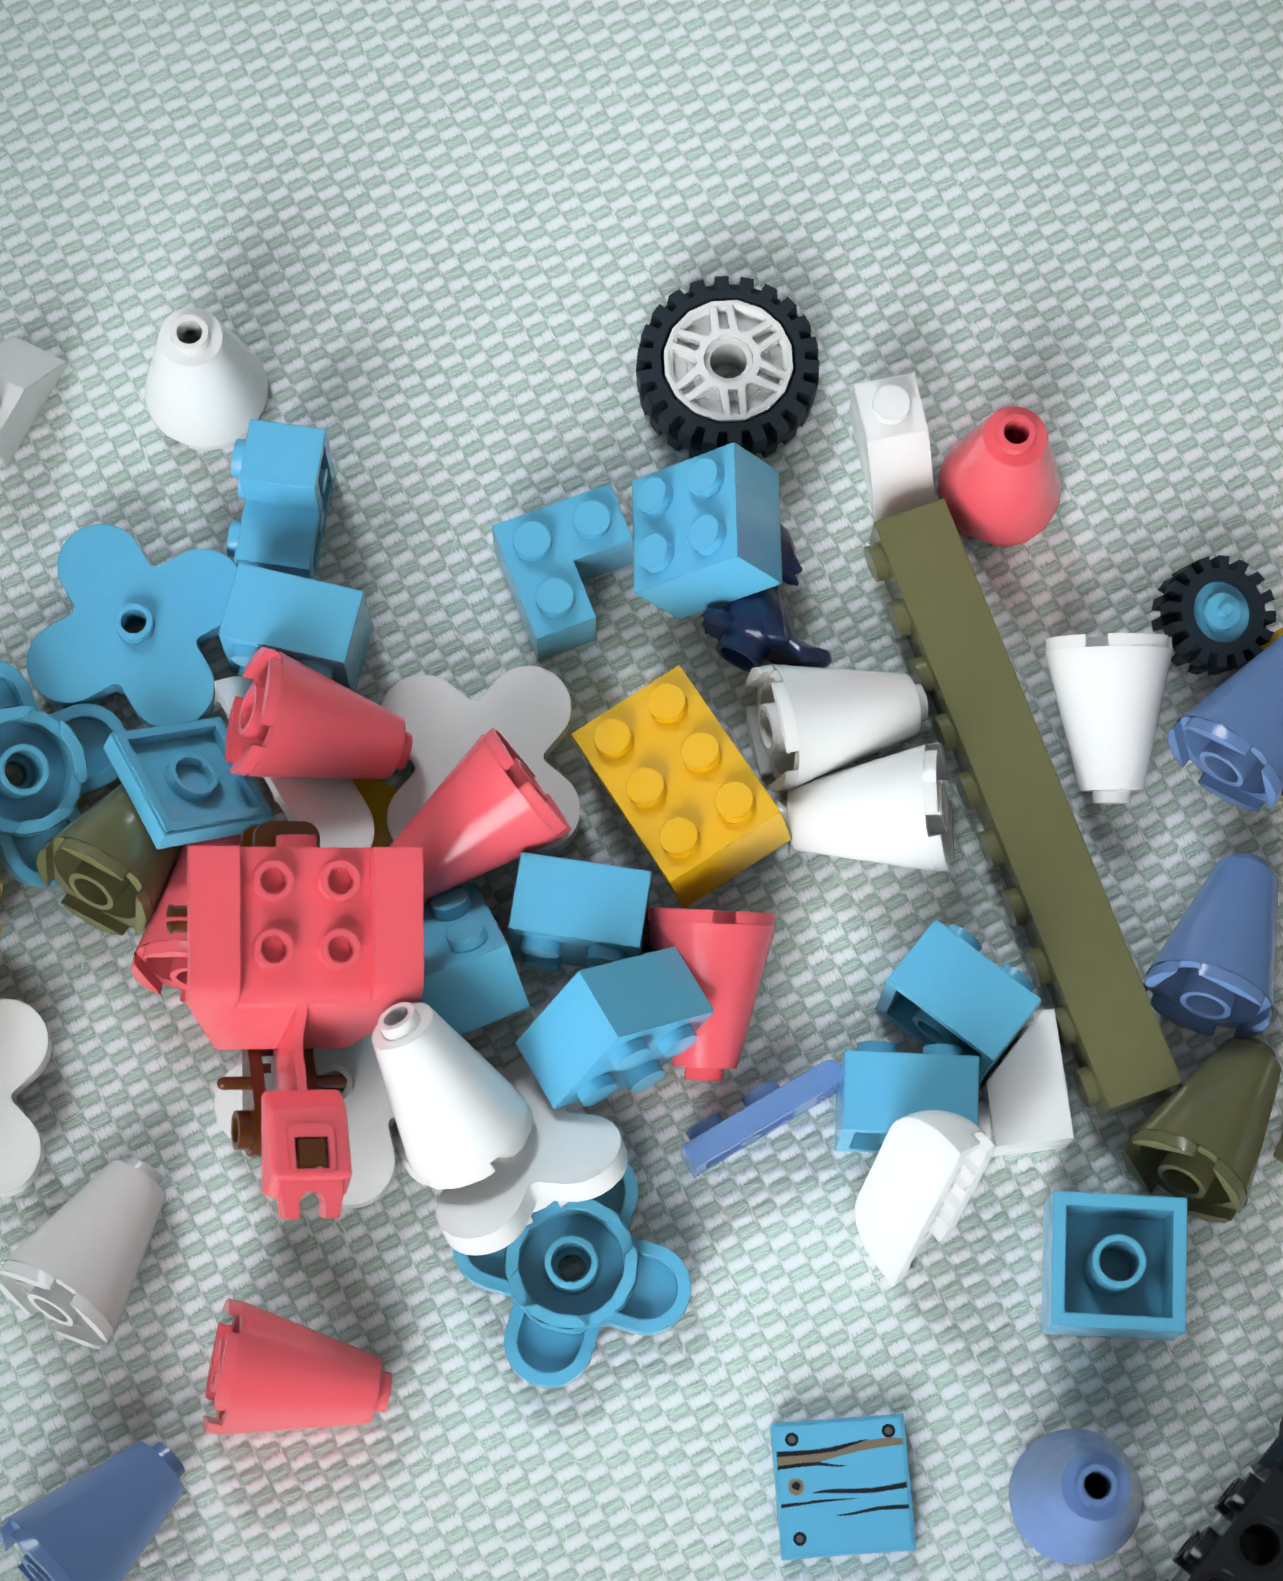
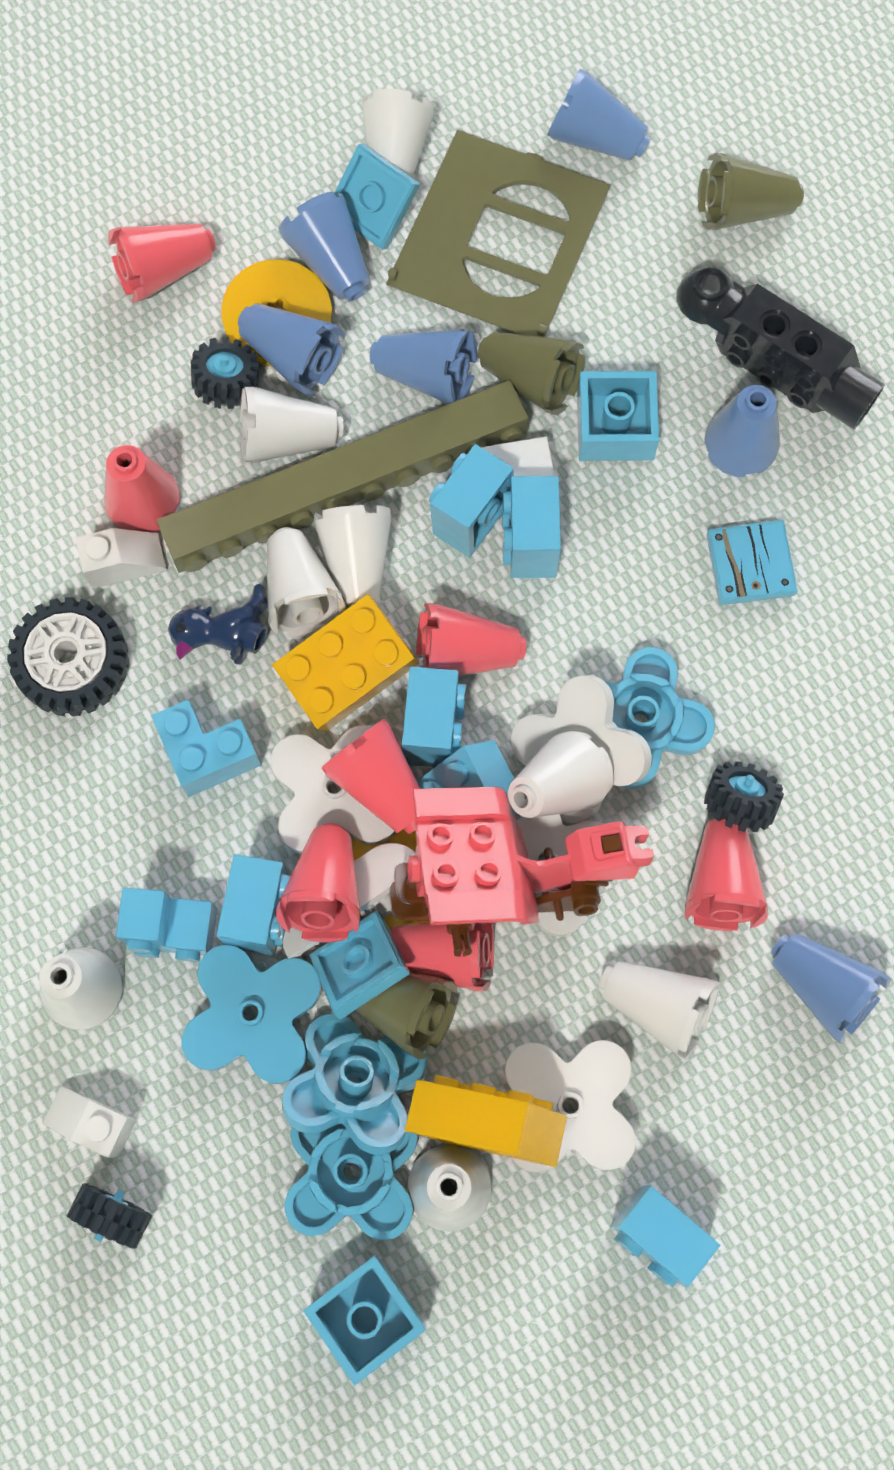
camera: 90 degrees left, 0 degrees up
(415, 1417) = (743, 796): none -> black wheel
(615, 1028) = (506, 686): medium azure brick -> none
(706, 531) = (182, 655): medium azure brick -> none
(765, 1111) = (540, 611): medium blue hinge -> none
(919, 1186) = (588, 511): white brick -> none

